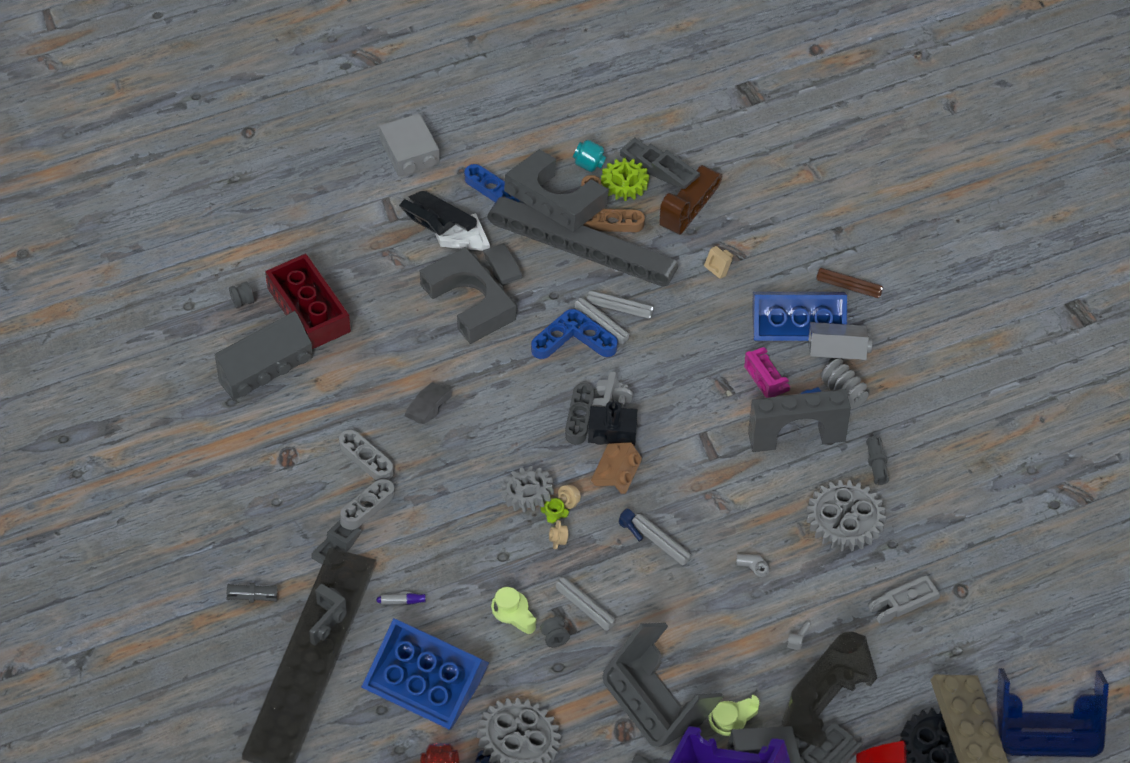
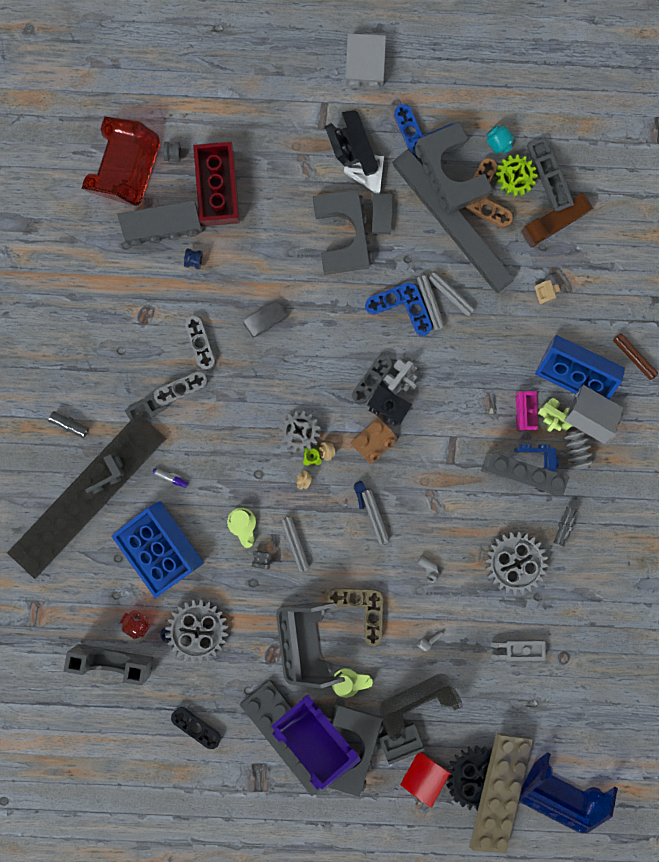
camera: 25 degrees right, 35 degrees up
(191, 319) = (125, 161): none -> clear red windscreen
(316, 379) = (193, 258): none -> dark blue wheel
(703, 628) = (363, 602): none -> dark tan beam
(800, 364) = (554, 417): none -> yellowish green hips

